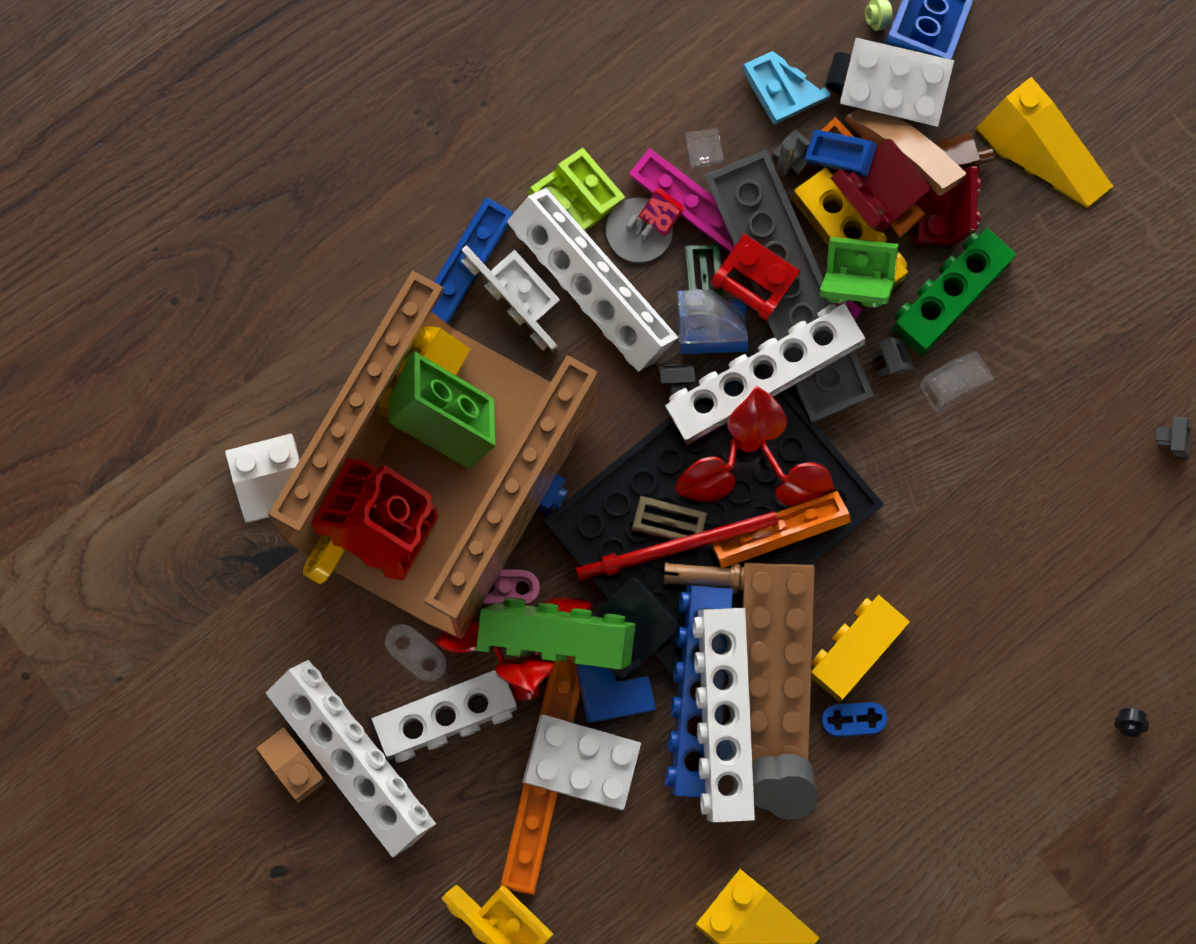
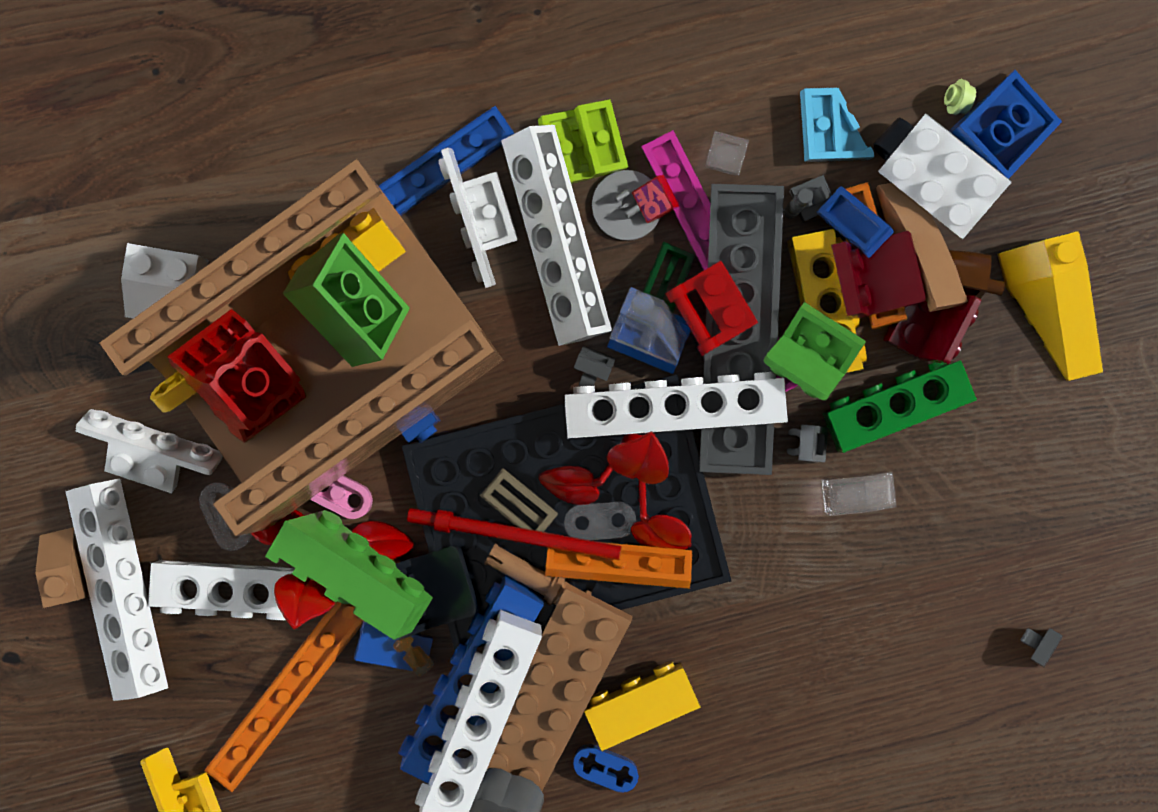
camera: 30 degrees right, 10 degrees up
(319, 632) = (146, 453): none -> white bracket
(581, 762) = (331, 692): white plate -> none
(641, 695) = (414, 656): none -> clear orange piece
(746, 502) = (599, 520): none -> clear plate

